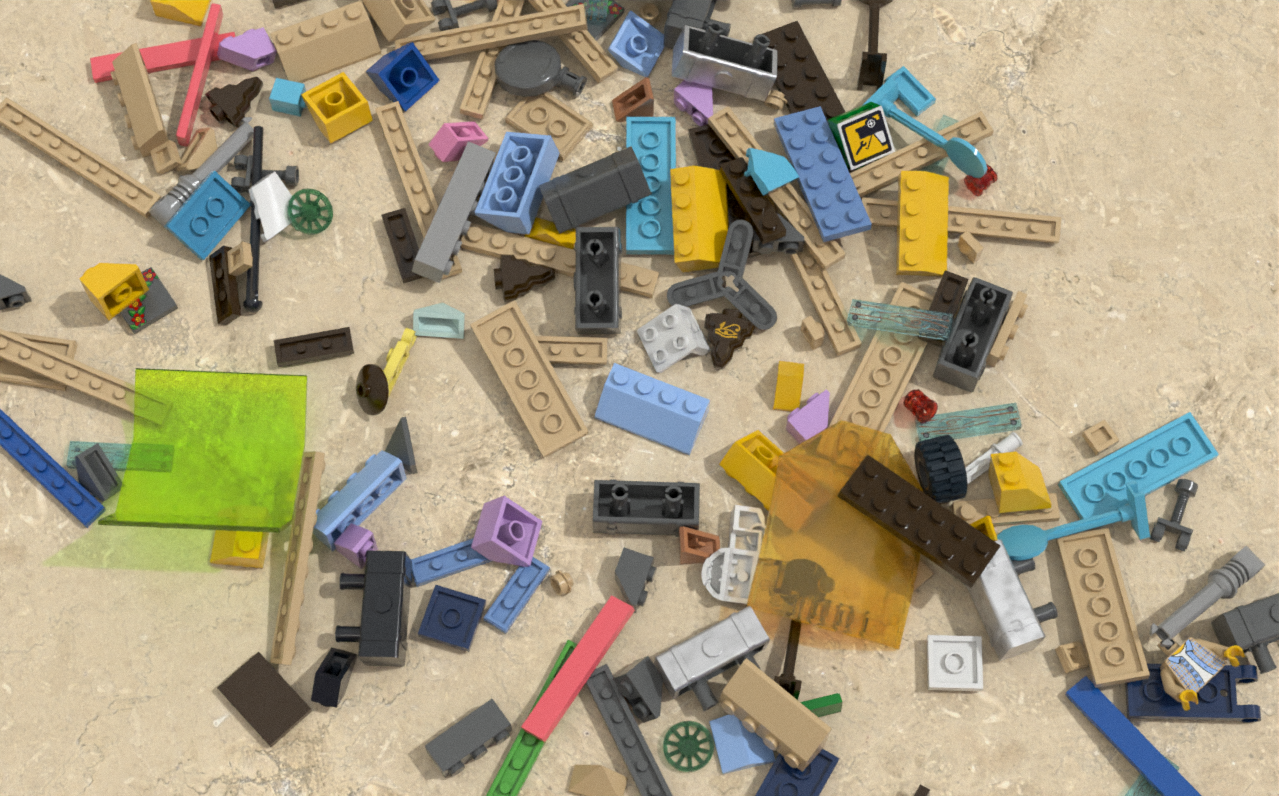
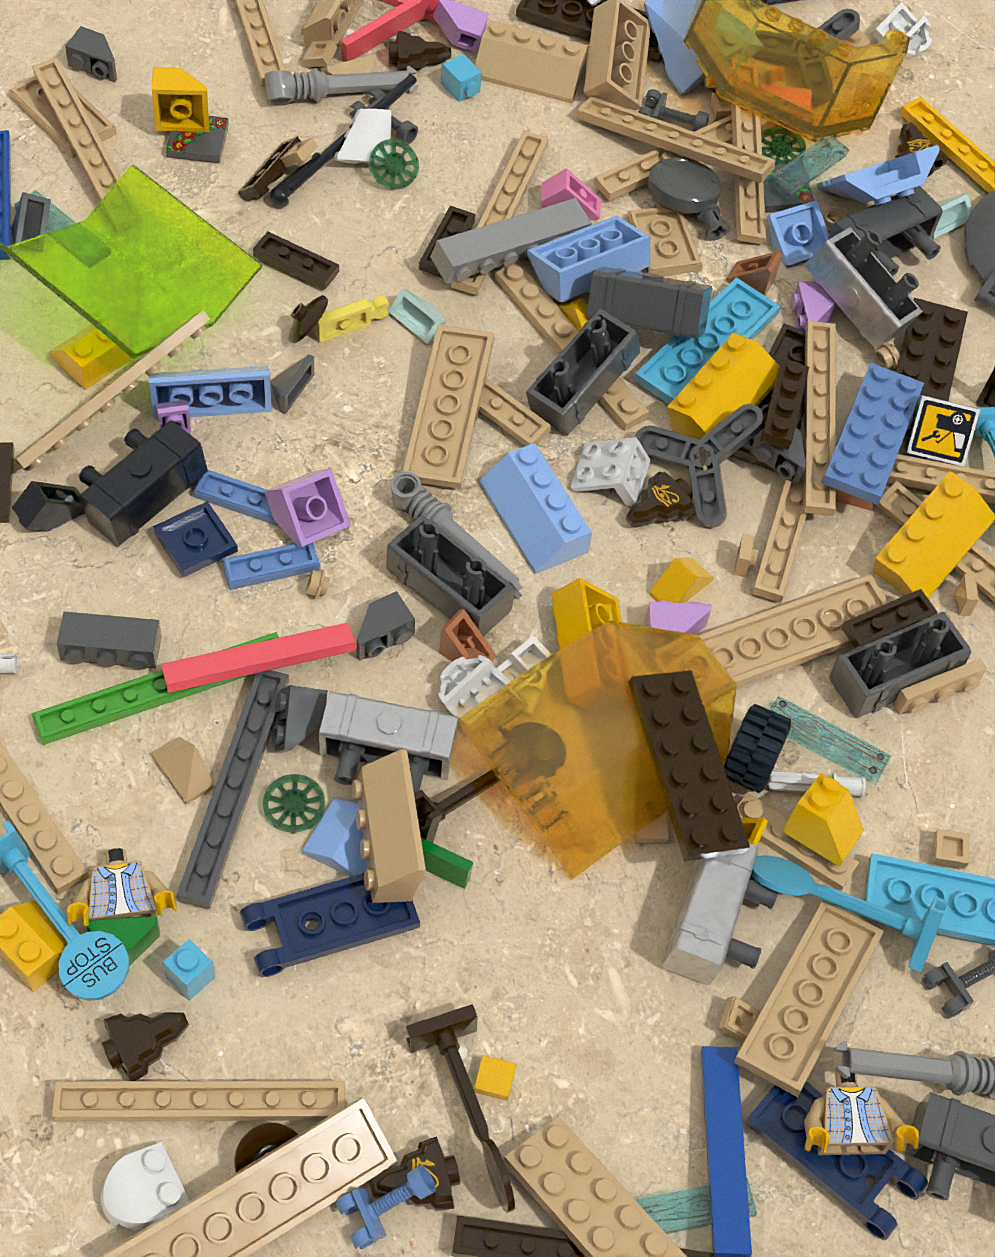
camera: 35 degrees right, 10 degrees down
(207, 215) = (308, 109): dark azure plate -> none
(337, 107) = (492, 108): yellow slope -> none
(403, 75) = (572, 124): blue slope -> none
(519, 276) = (521, 329): dark brown rock -> none
(598, 469) = (423, 503): none -> light grey piece
(769, 170) = (823, 390): medium azure slope -> none
(900, 319) = (837, 597): clear light blue tile -> none
(922, 404) = (795, 685): clear red bush -> none
(954, 663) = (614, 931): white plate -> none

